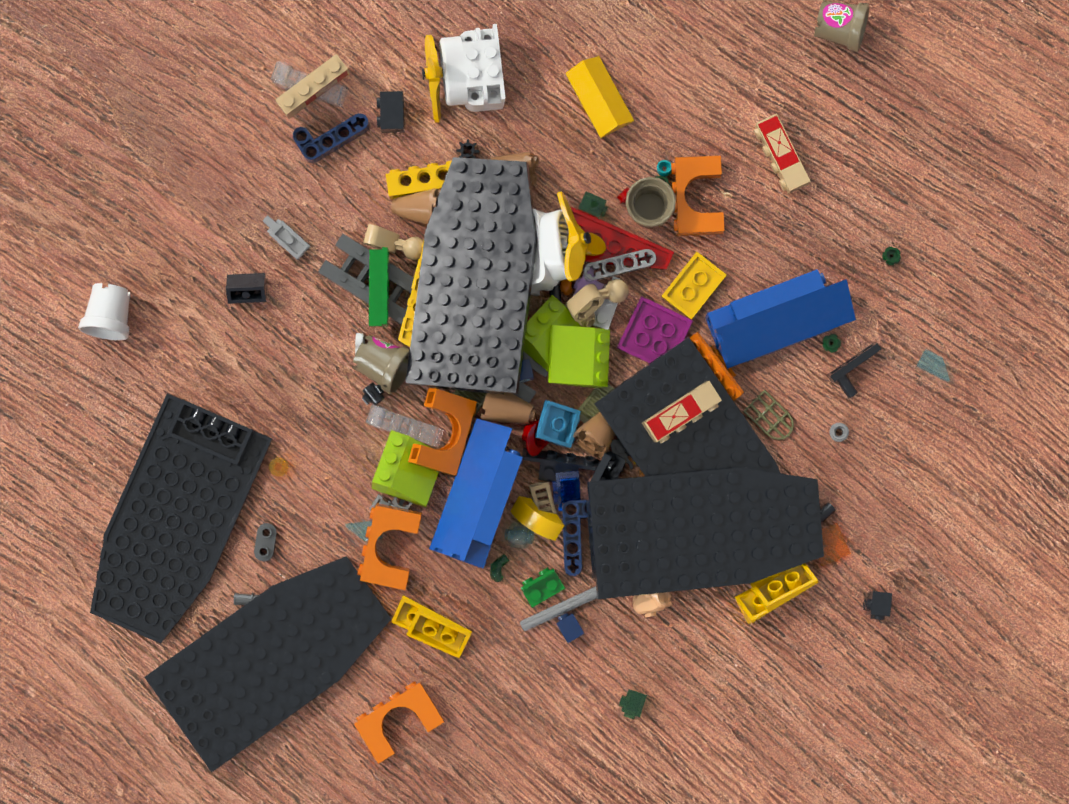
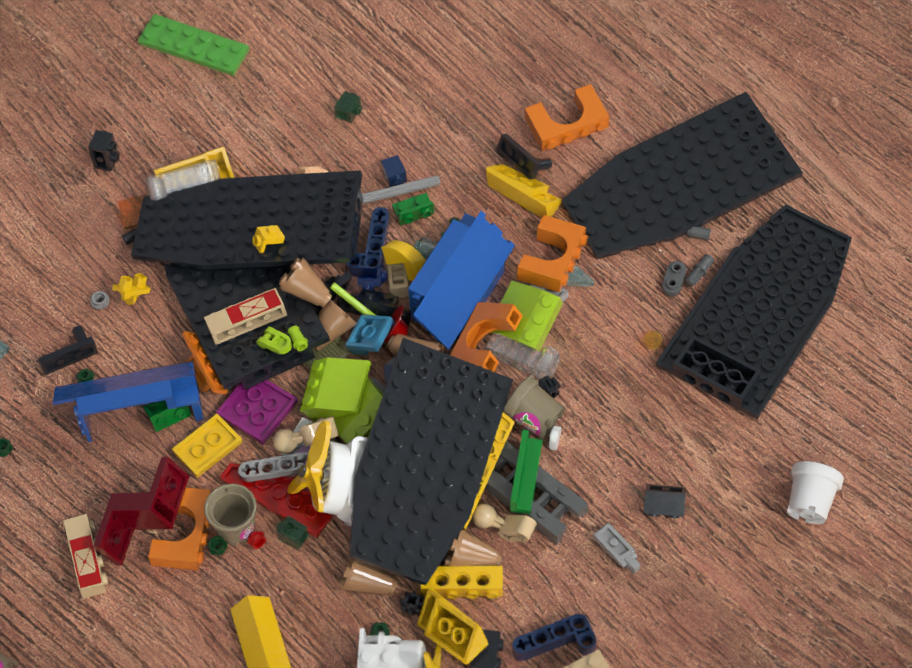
camera: 170 degrees left, 25 degrees down
(240, 553) = (699, 270): none -> dark grey axle
(426, 123) = (451, 628): none -> yellow slope
(429, 650) = (521, 158): none -> black piece
(493, 127) = (379, 626): none -> dark green plate
(579, 455) = (350, 299): none -> lime bar
(623, 391) = (299, 341): none -> lime pin
(630, 453) = (305, 284): none -> medium nougat cone
(638, 383) = (280, 342): none -> lime plate
(665, 163) = (206, 558): teal hinge -> none
(676, 497) = (267, 235): none -> yellow bracket
(728, 194) = (141, 511): none -> dark red bracket
(763, 416) = (162, 331): olive window -> none
(789, 574) = (182, 178): none -> clear beam
(808, 445) = (132, 289): none -> yellow hips
(818, 766) = (193, 44): none -> bright green plate

